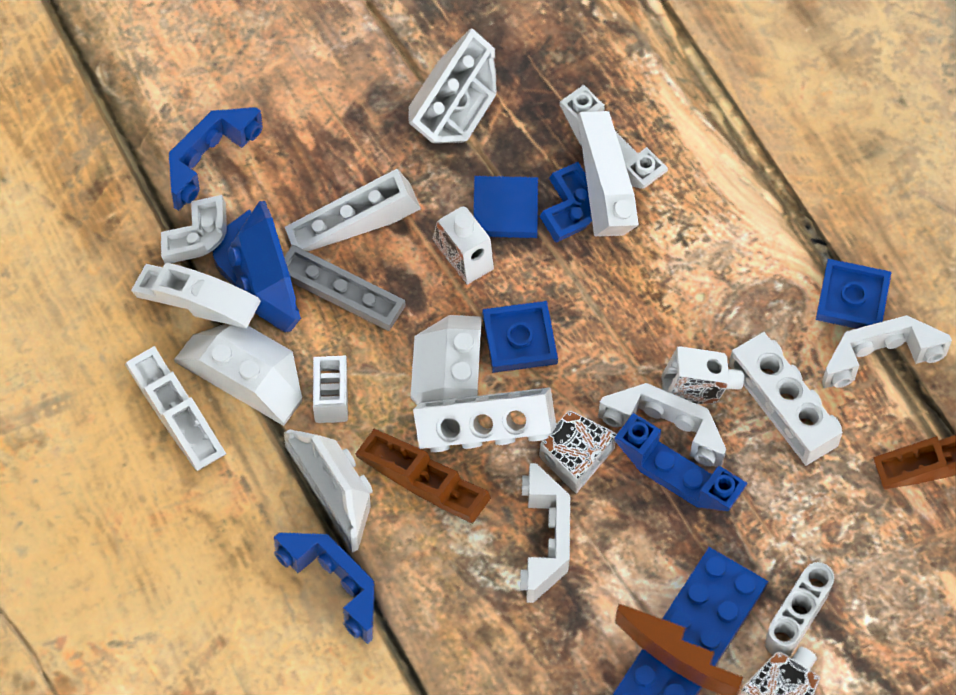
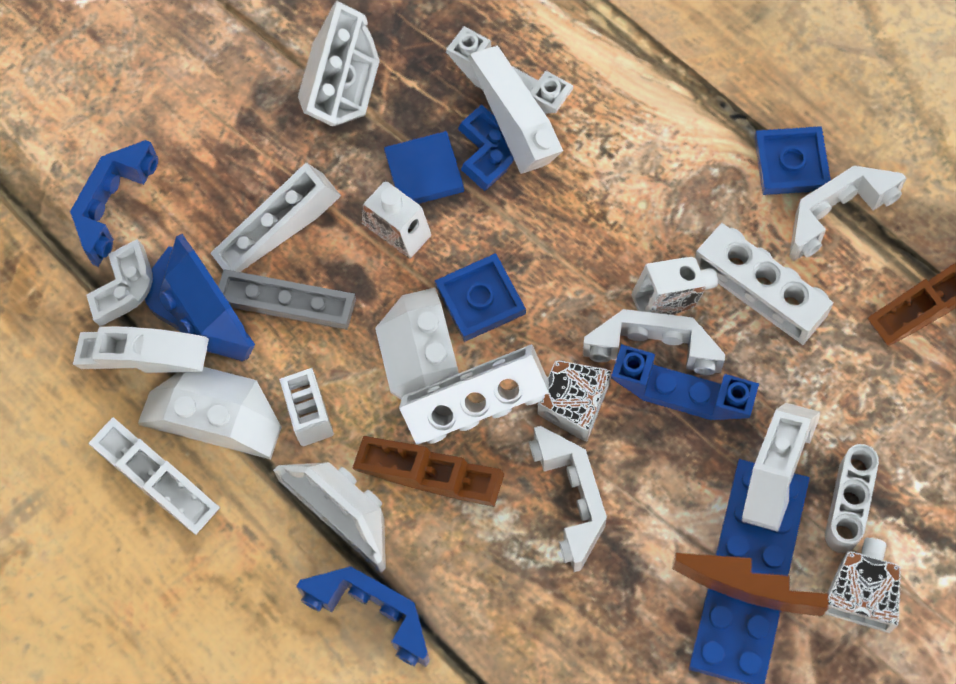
camera: 10 degrees left, 5 degrees up
(736, 554) = (776, 465): none -> white slope

